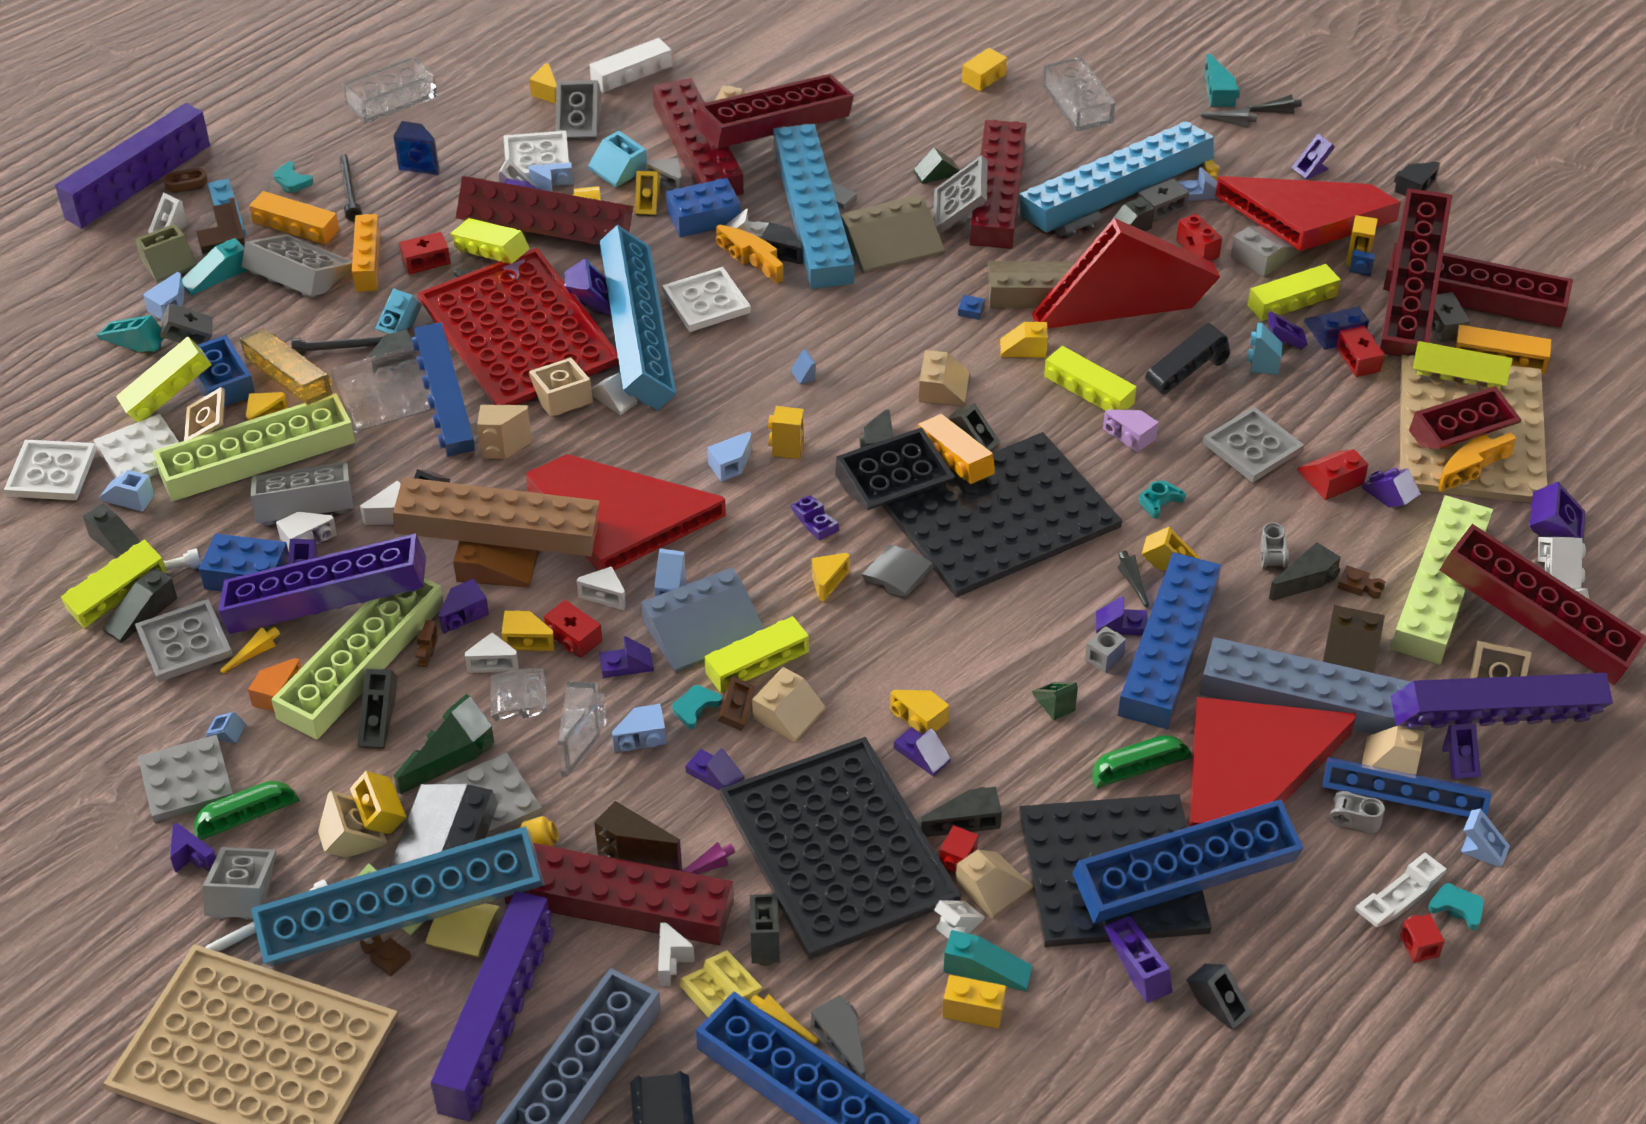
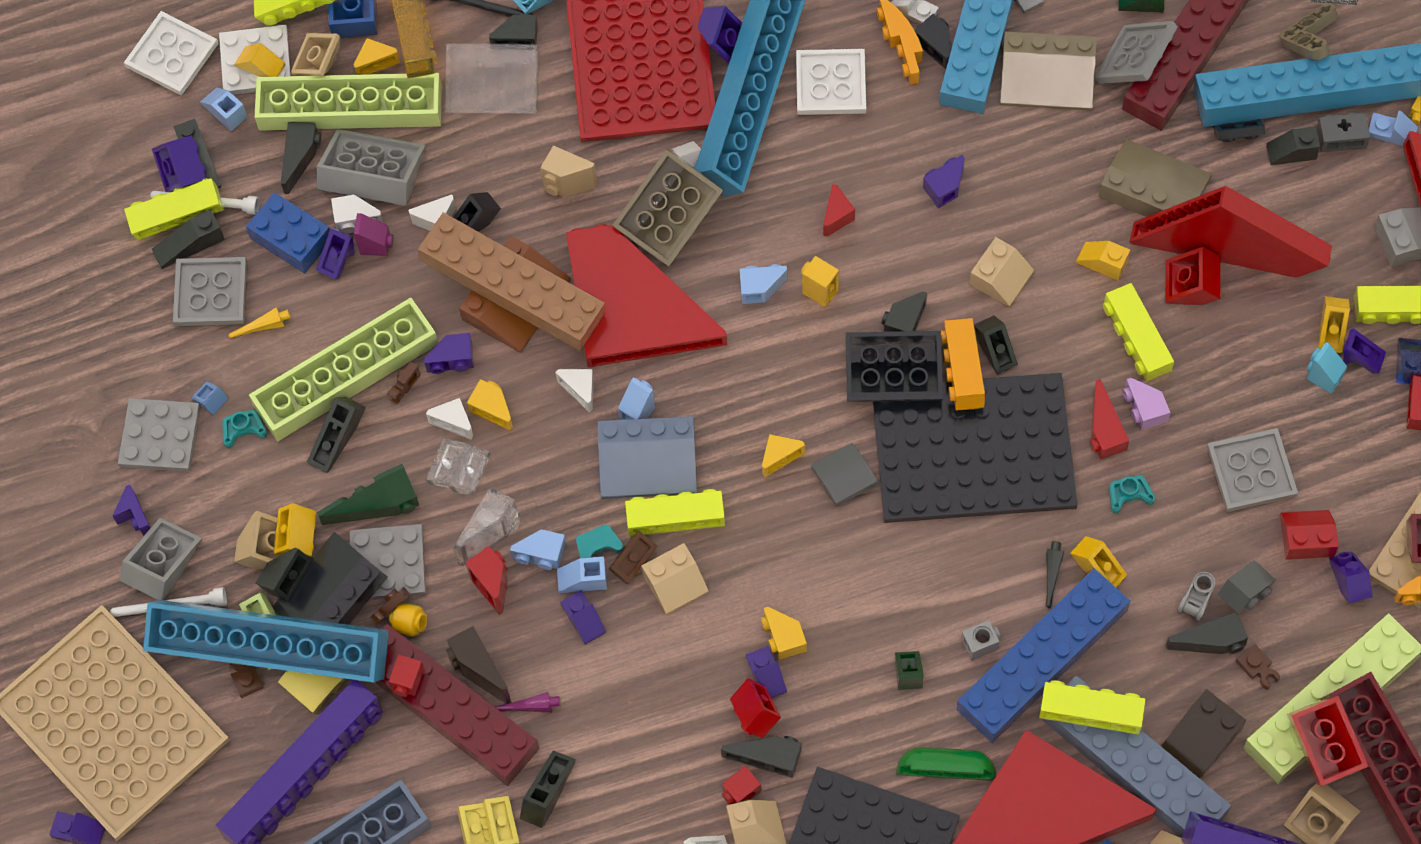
camera: 30 degrees right, 20 degrees up
(100, 539) = (179, 163): none -> dark purple slope
(146, 440) = (260, 61): none -> yellow slope
(222, 499) = (298, 153): none -> pearl dark grey slope
(243, 807) = (192, 485): green brick -> none
(271, 681) = (263, 370): orange slope -> none
(271, 738) = (240, 425): none -> teal piece
(322, 584) = (337, 291): dark purple brick -> none
(332, 535) = (372, 236): none -> magenta slope
(385, 840) = (284, 573): none -> pearl dark grey slope
(444, 389) = (535, 105): blue brick -> none
(515, 818) = (393, 599): none -> reddish brown plate
(561, 387) = (643, 138): tan slope -> none
(568, 869) = (406, 676): none -> red brick
(573, 628) = (528, 406): red brick -> none
(603, 766) = (489, 576): none -> red slope
(615, 419) = (668, 207): none -> dark tan slope
(630, 660) = (564, 469): dark purple slope -> none
(672, 950) = (461, 775): white slope -> none
(697, 731) = (583, 575): none -> light blue slope
(770, 382) = (838, 212): none -> red slope
(804, 368) = (879, 205): medium blue slope -> none
(813, 517) = (802, 383): dark purple slope -> none
(838, 847) = (647, 737): black plate -> none
(851, 334) = (944, 183): none -> dark purple slope
(933, 774) = (754, 708): none -> red brick
(971, 307) = (1079, 191): blue plate -> none
(1093, 145) = (1301, 35): none -> dark tan beam
(1107, 454) = (1107, 431): none -> red slope
(1109, 330) = (1193, 278): none -> red slope
(1120, 619) = (1013, 613): dark purple slope -> none
(1186, 358) = (1246, 345): black beam -> none
(1199, 237) = (1348, 198): red brick -> none
(1244, 320) = (1334, 322): none -> yellow slope
(1249, 648) = (1092, 707): none -> neon yellow brick
(1313, 522) = (1247, 587): none -> dark grey brick
(1470, 593) = (1327, 740): none -> red slope

